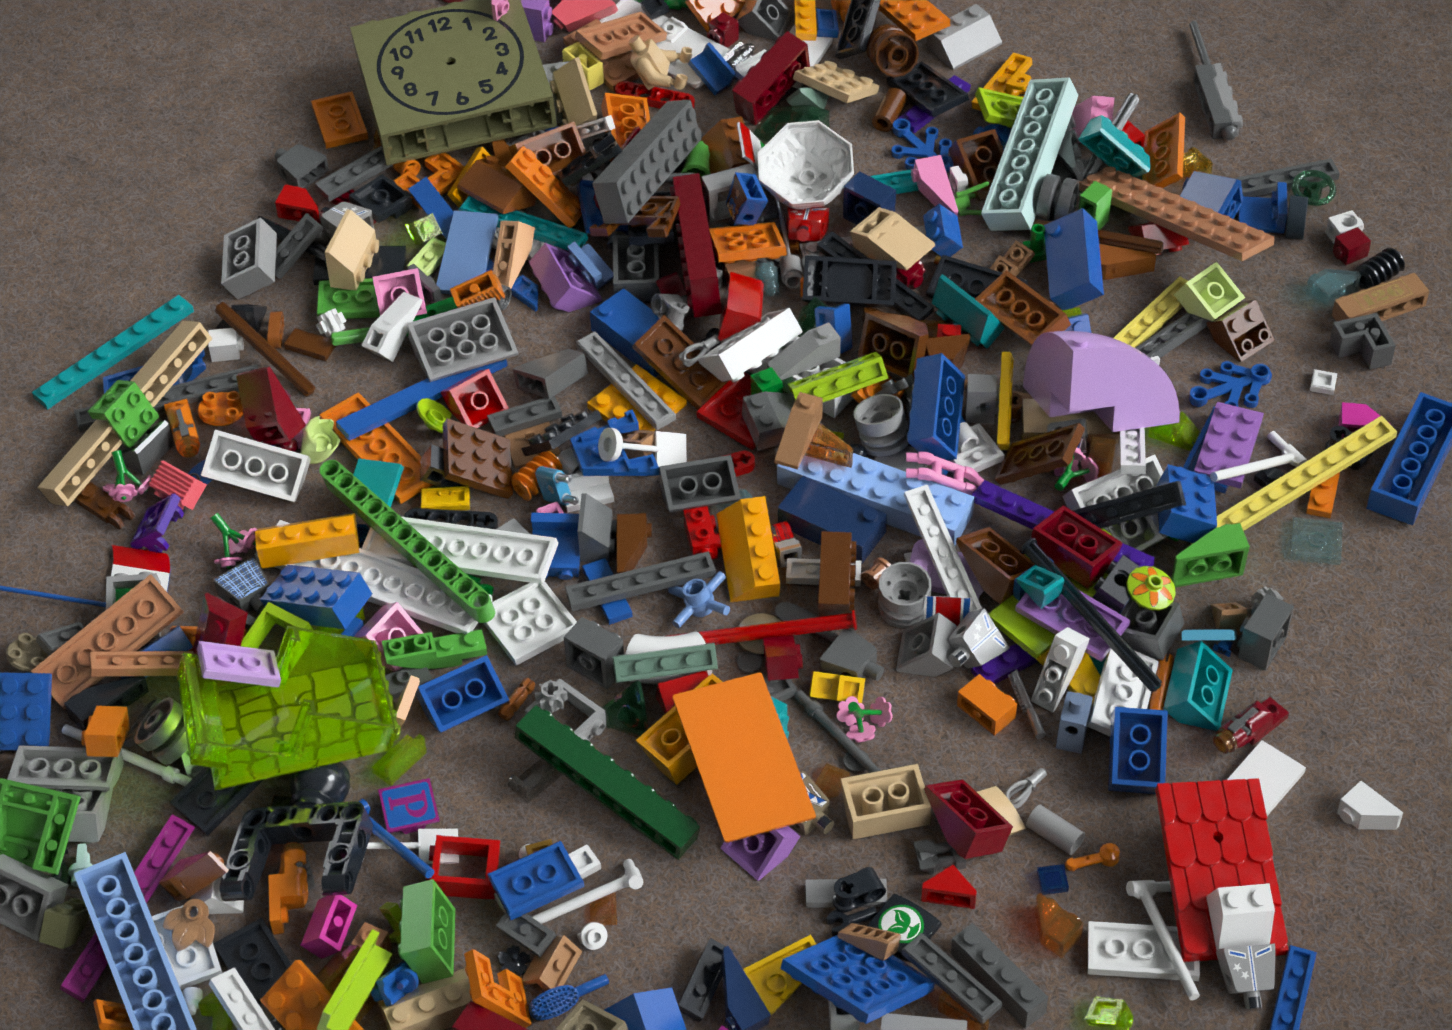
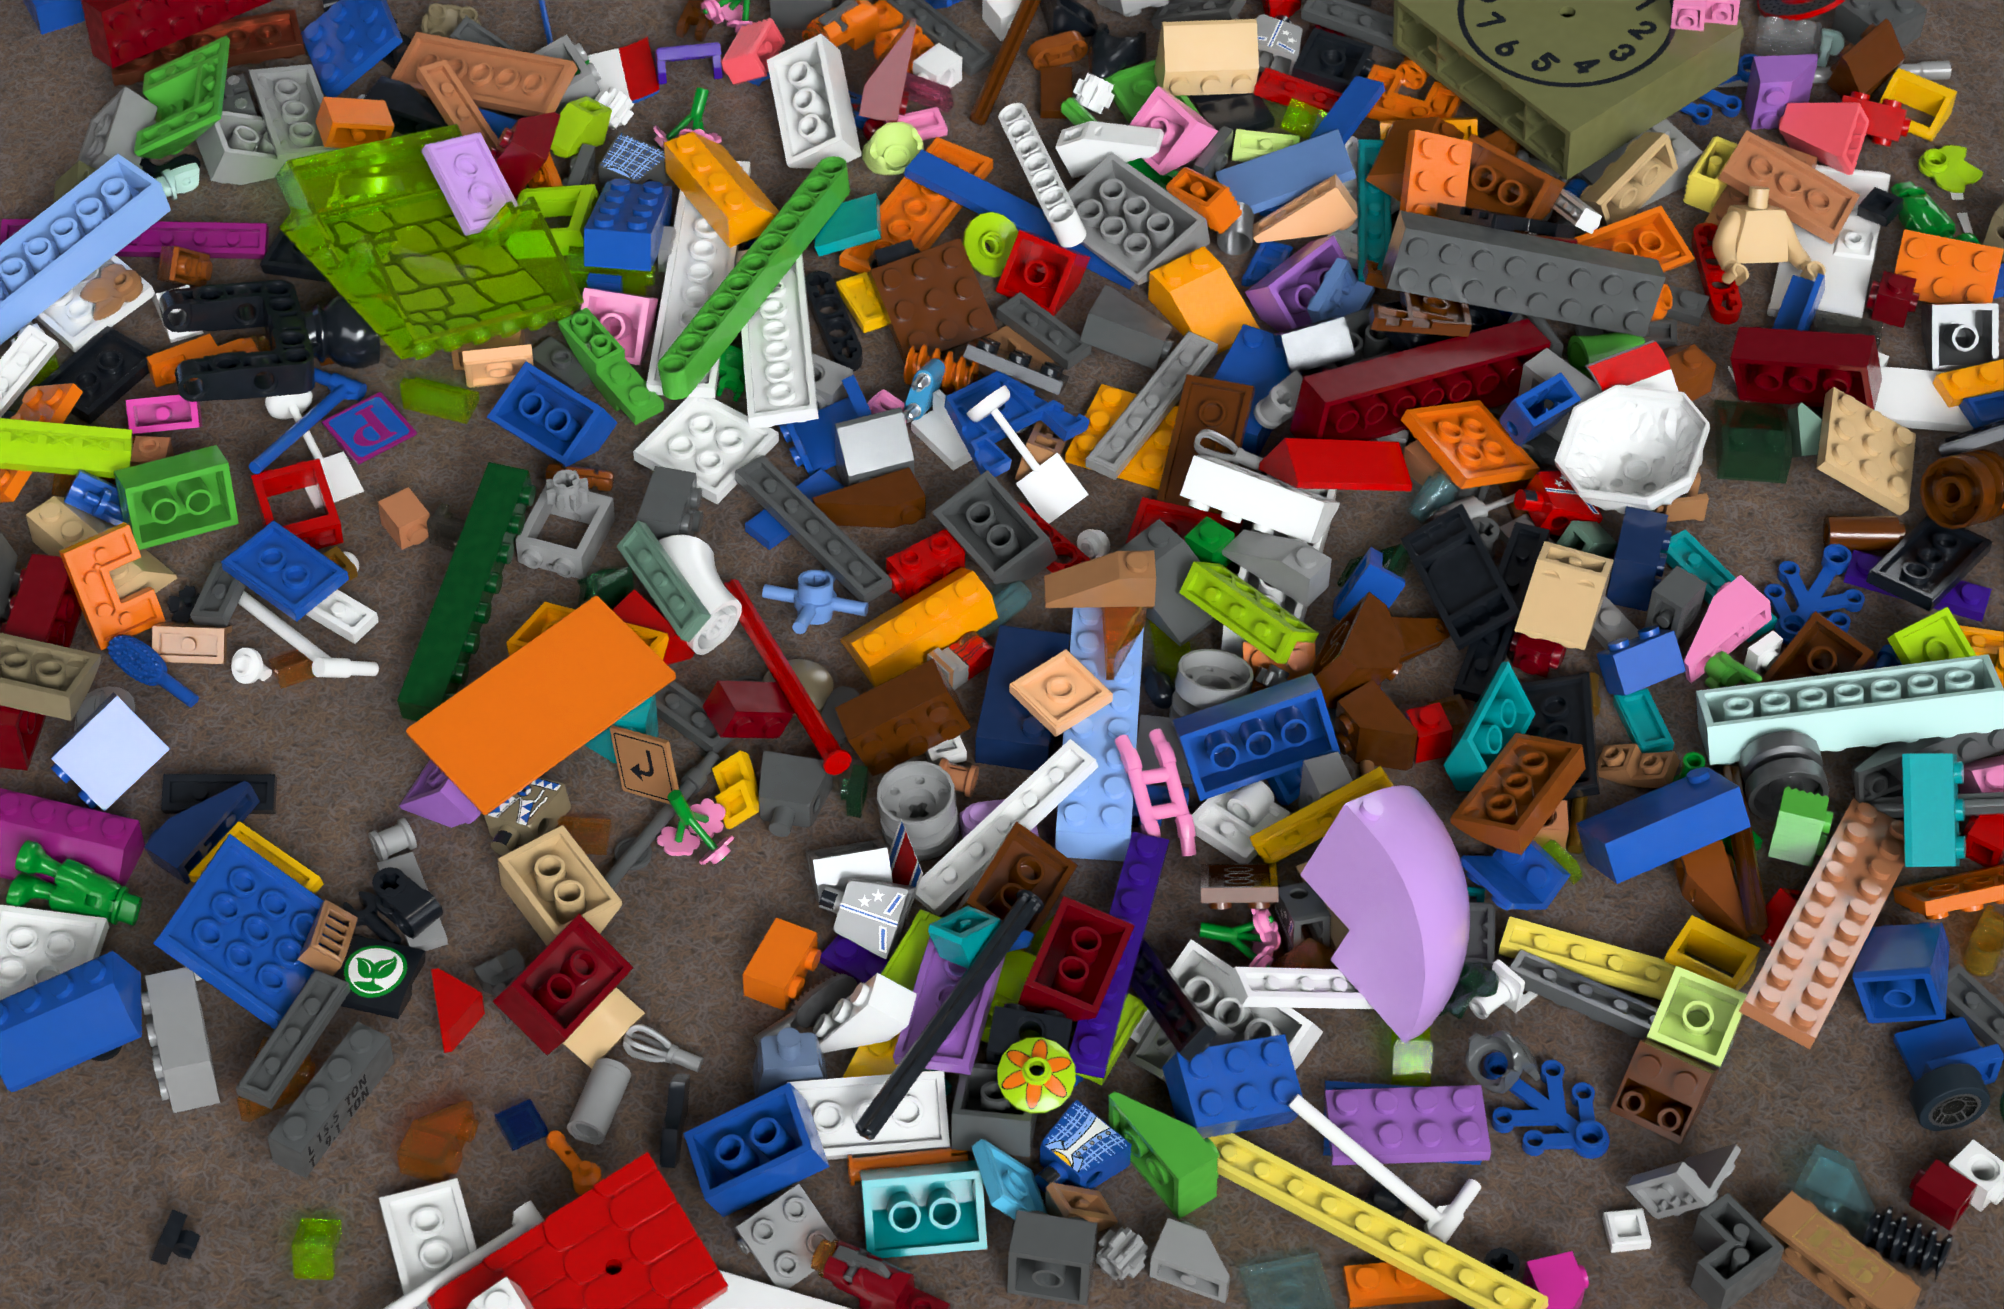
camera: 65 degrees right, 0 degrees up
(179, 580) = (619, 103): none -> white gear
(189, 596) = (580, 123): none -> lime slope
(298, 302) = (1111, 54): none -> black animal
(396, 223) = (1283, 87): none -> red plate
(408, 371) = (1042, 175): none -> white beam
(507, 806) = (404, 518): none -> nougat brick
(546, 330) = (1200, 298): none -> light orange slope
(633, 278) = (1316, 344): none -> panel
(719, 444) = (1093, 543): none -> white plate
(791, 887) = (392, 839): none -> light grey bush
(808, 721) = (644, 764): none -> medium nougat piece
(843, 222) = (1589, 538): none -> sand green brick
(854, 491) = (1060, 692): none -> light nougat tile
(868, 625) = (855, 791): none -> clear green plate
(914, 200) = (1677, 603): none -> dark grey brick
(979, 251) = (1643, 721): none -> teal tile
(1100, 795) = (674, 1120): none -> black tile
(1167, 267) = (1716, 948): none -> yellow tile
(1193, 599) = (1081, 1151): none -> torso
(1193, 760) = (785, 1237): none -> light grey hinge
(1203, 378) = (1517, 1057): none -> dark grey hair
(1281, 572) = (1189, 1261): none -> light grey slope
(1312, 338) = (1684, 1184): none -> light grey bracket

